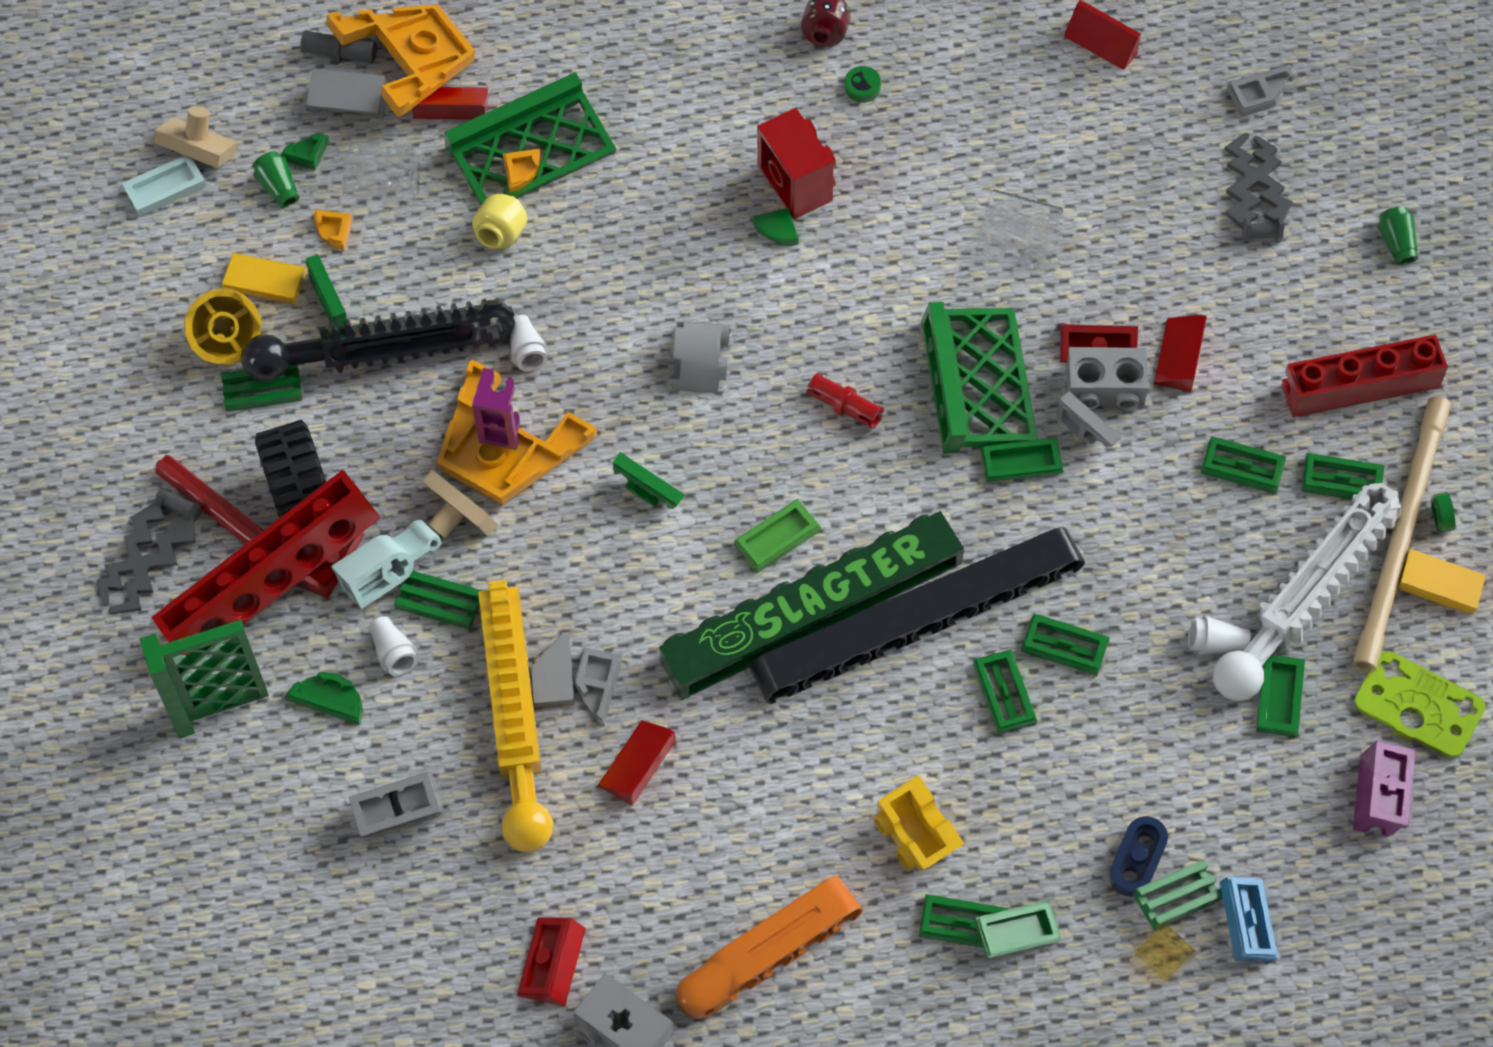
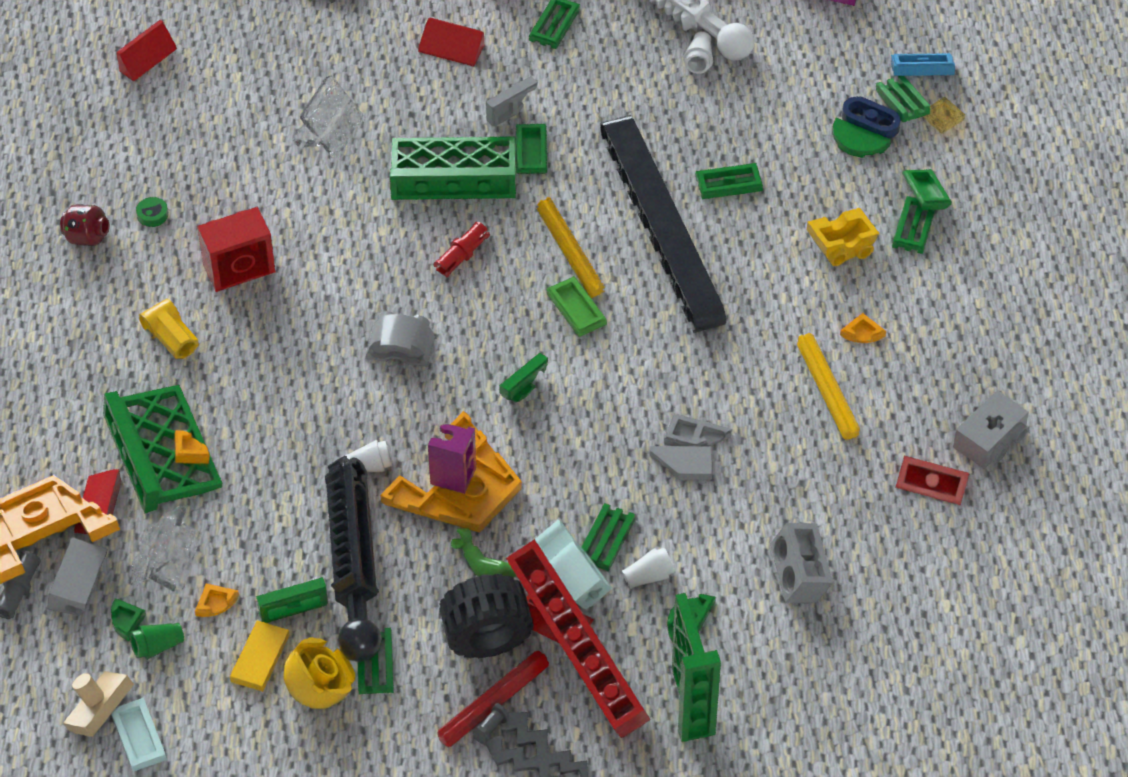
camera: 85 degrees left, 10 degrees down
(388, 476) = (479, 564): none -> bright green arm
(455, 508) = (524, 514): tan tile -> none
(499, 221) = (241, 468): light yellow head -> none
(526, 823) = (717, 483): yellow gear -> none
(638, 761) = (768, 408): red slope -> none
(683, 828) = (828, 386): none -> yellow axle
(694, 119) = (166, 324): none -> yellow piece
(765, 947) = (934, 336): orange piece -> none
(777, 226) = (283, 280): green tile -> none
(778, 866) = (863, 329): none -> light orange tile
(817, 600) = (646, 287): dark green brick -> none
(866, 518) = (570, 247): none -> yellow axle
(1061, 657) = (684, 159): green tile -> none
(1096, 336) = (432, 91): red slope -> none
(1099, 843) = (857, 140): none -> green tile
(1106, 368) = (470, 85): light grey brick -> none
(1281, 696) = (763, 27): green tile -> none

